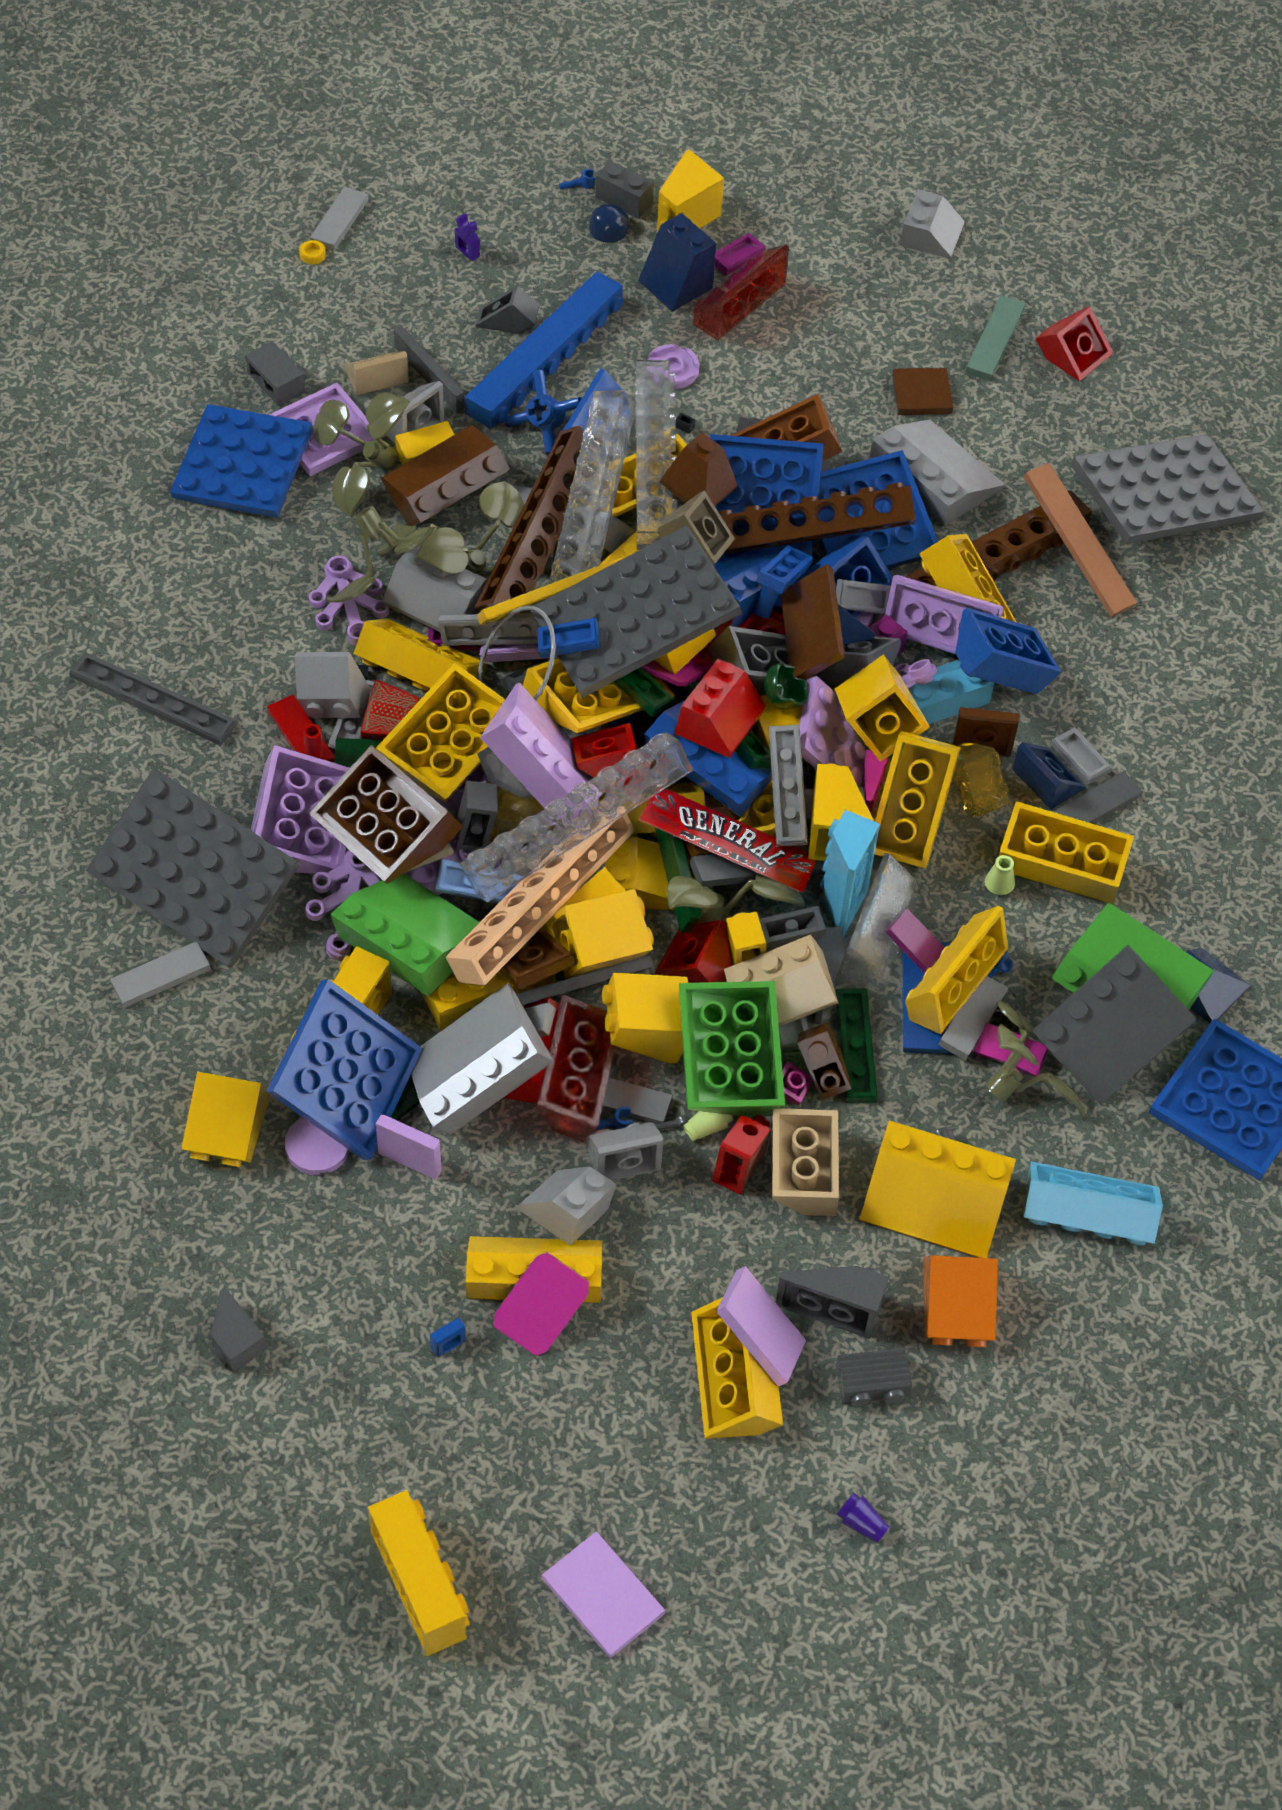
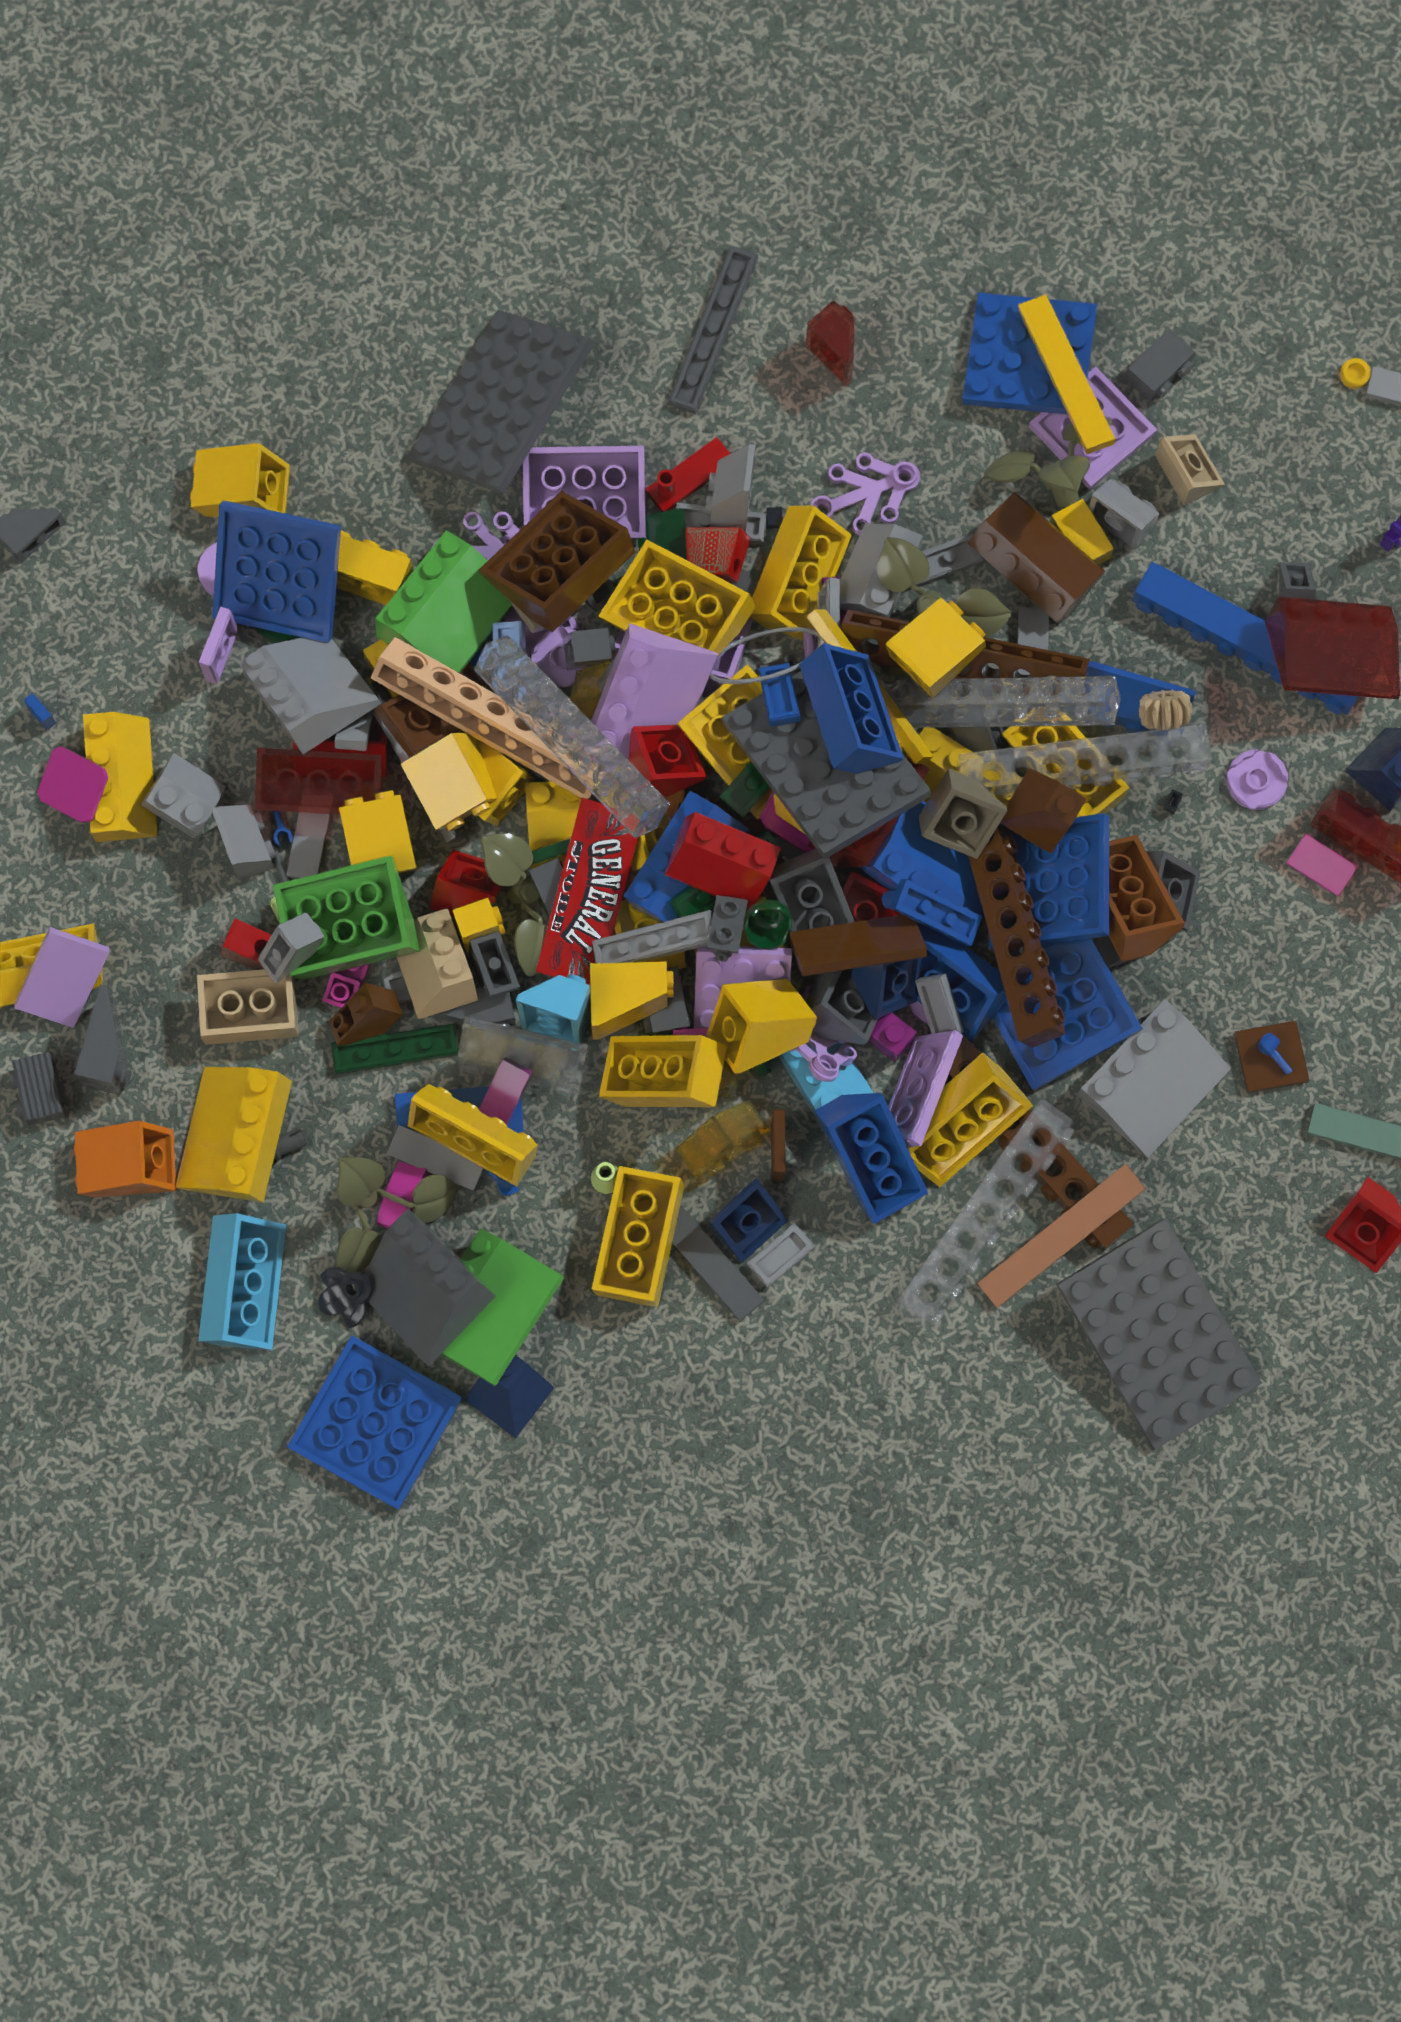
camera: 85 degrees right, 20 degrees up
(160, 974) = (392, 399): light grey tile -> none
(199, 592) = (832, 340): none -> clear red slope
(276, 422) = (1066, 374): none -> yellow tile
(373, 527) = (922, 490): olive plant -> none
(429, 368) = (1196, 520): dark grey tile -> none
(536, 412) = (1149, 647): blue bar -> none
(540, 522) = (936, 646): none -> yellow slope
(571, 281) = (1335, 647): none -> clear red slope
(599, 577) = (850, 709): none -> blue slope
(619, 377) = (1165, 710): none -> tan gear
(755, 333) = (1321, 864): none -> dark pink slope
(761, 1090) = (290, 946): none -> light grey slope
(787, 713) = (726, 926): none -> dark grey hinge
(917, 385) = (1268, 1047): none -> blue hand
(1063, 601) = (1041, 1118): none -> clear brick
(1109, 1113) = (341, 1297): none -> black plate

